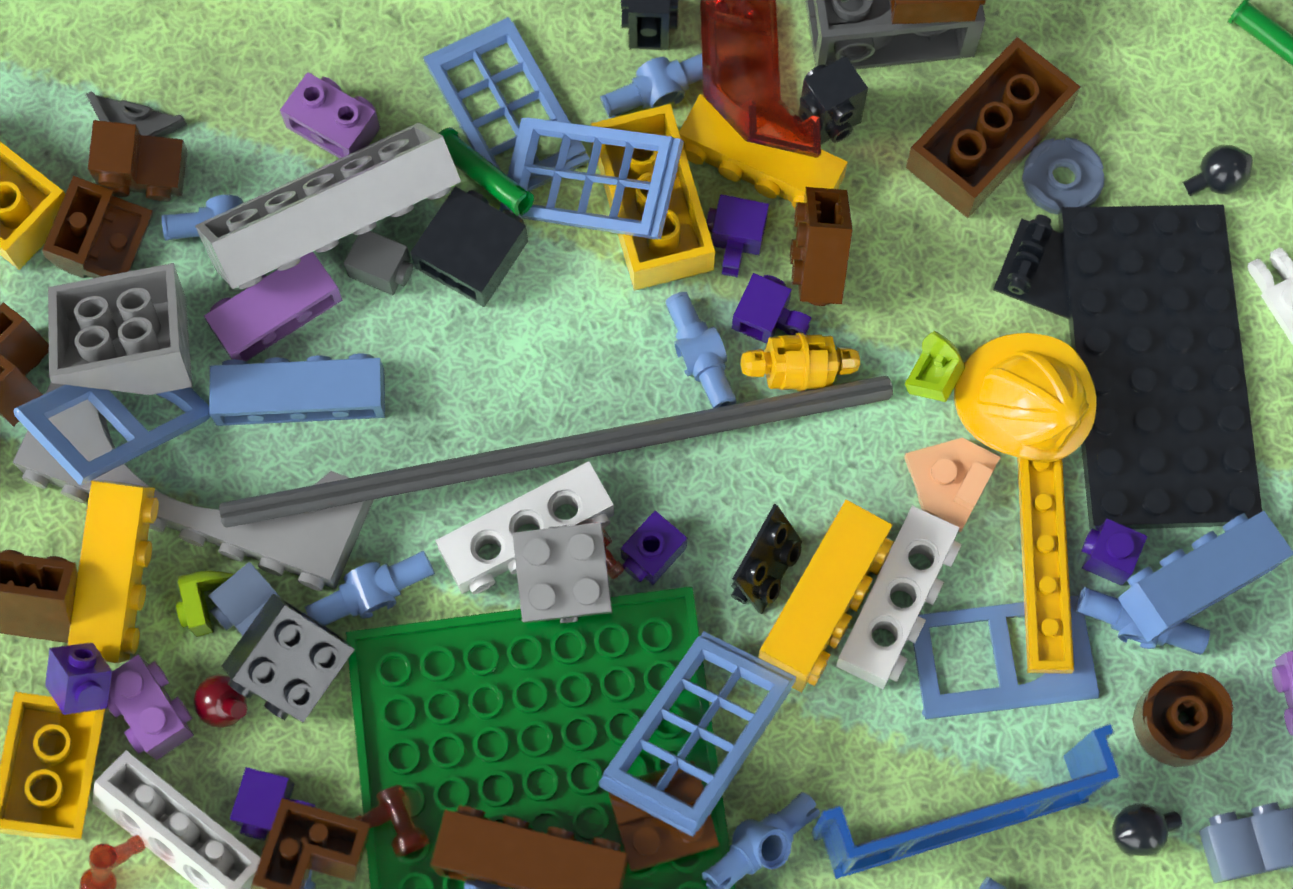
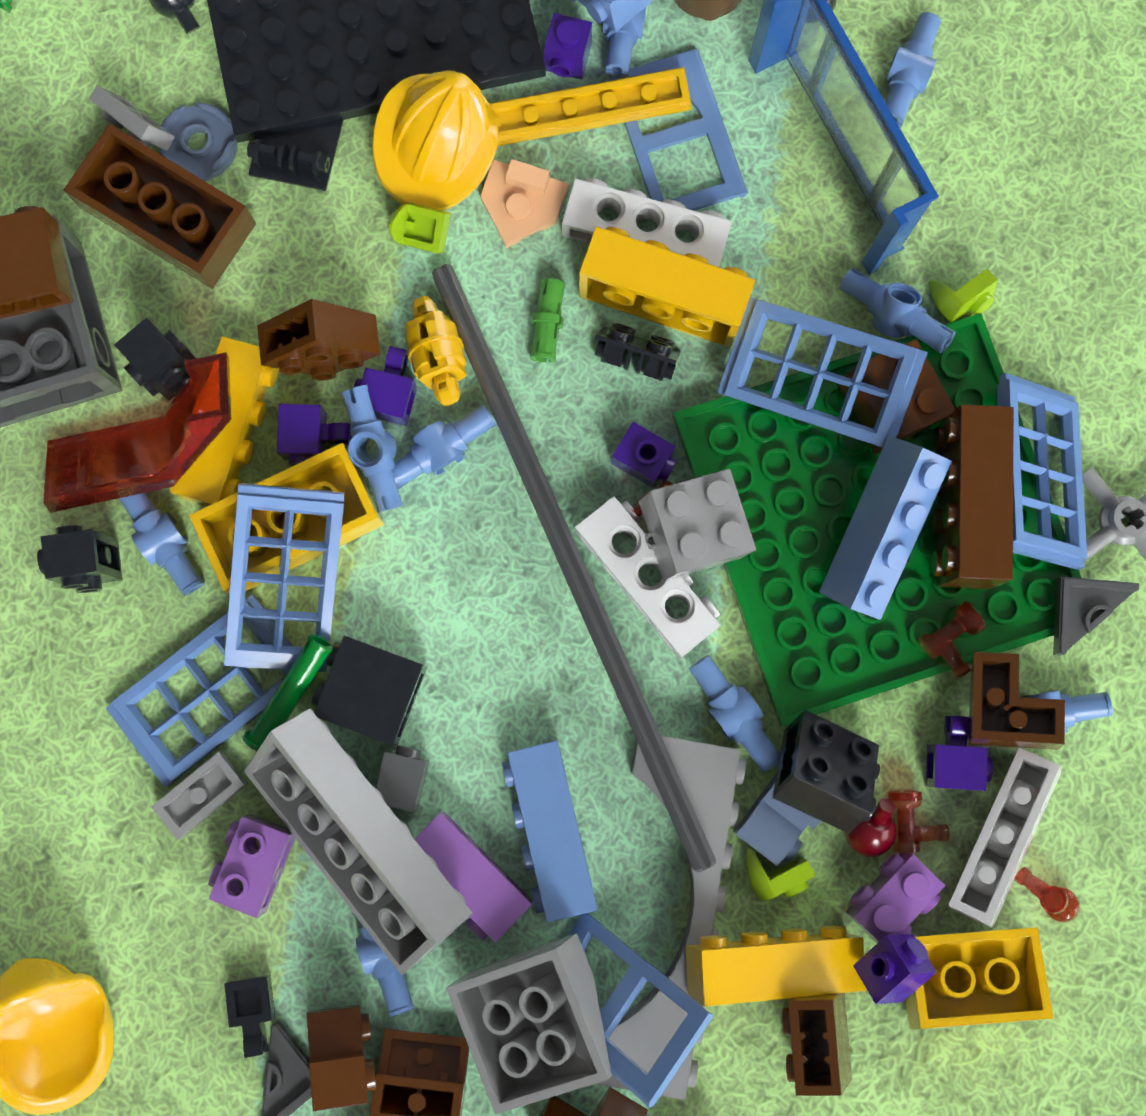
camera: 100 degrees left, 10 degrees up
(204, 100) = (249, 1005): none -> black plate
(208, 741) = (908, 833): none -> clear red piece
(407, 84) = (199, 795): none -> light grey plate
(519, 759) = (885, 527): none -> medium blue brick
(692, 286) = (363, 428): none -> medium blue pin
(815, 481) = (547, 320): none -> bright green pin
(1091, 113) = (123, 113): none -> light grey plate

